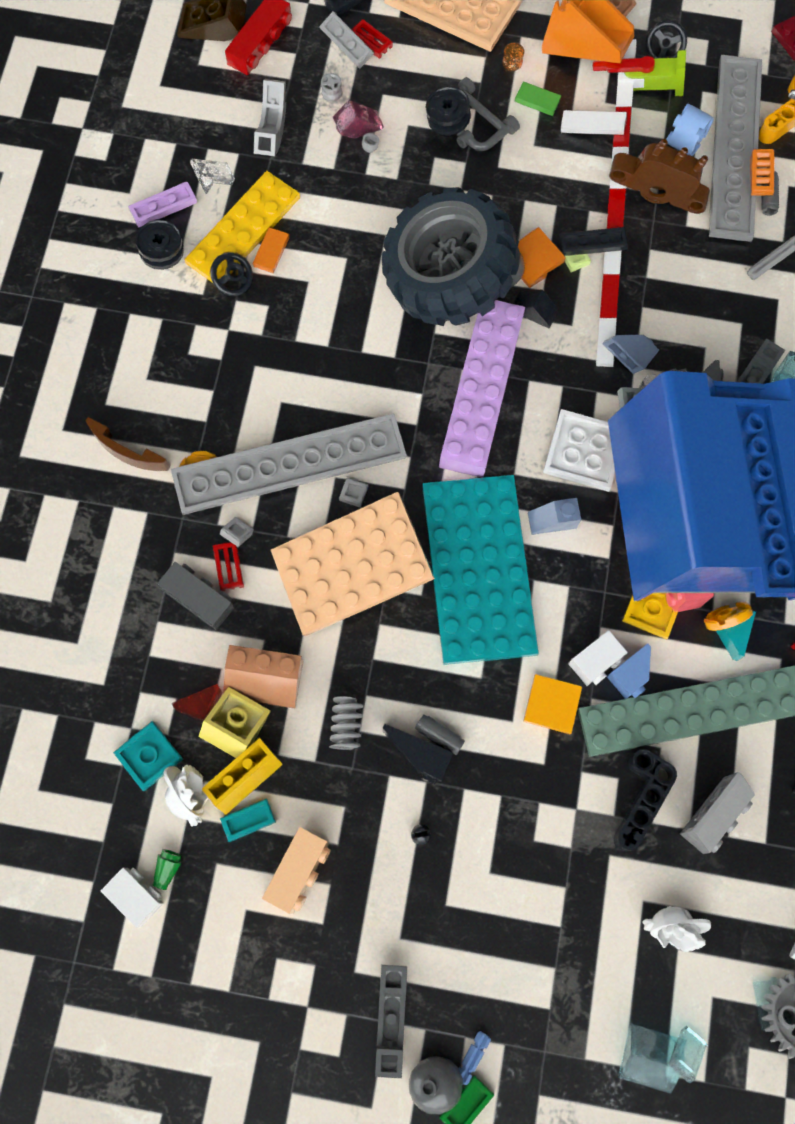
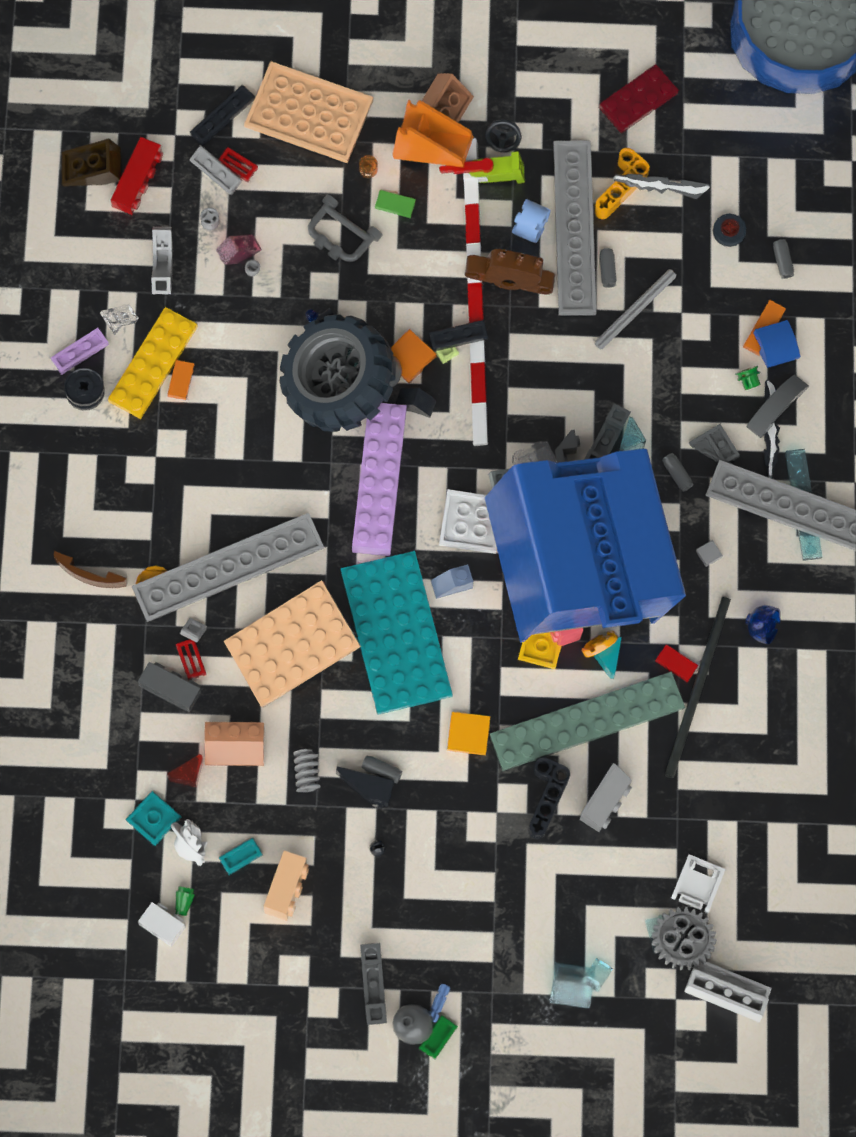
camera: 10 degrees left, 0 degrees up
(233, 723) = (218, 783): light yellow slope -> none
(237, 268) = (157, 404): black piece -> none
(242, 776) = (232, 822): yellow brick -> none
(353, 492) = (284, 583): light grey tile -> none
(448, 110) = (319, 241): black wheel -> none
(593, 122) = (446, 222): white tile -> none
(598, 658) = (500, 692): white brick -> none
(632, 350) = (503, 430): sand blue slope -> none
(632, 673) = (528, 700): medium blue slope -> none
(678, 928) = (582, 888): white hair -> none
(762, 158) = (597, 241): orange slope -> none

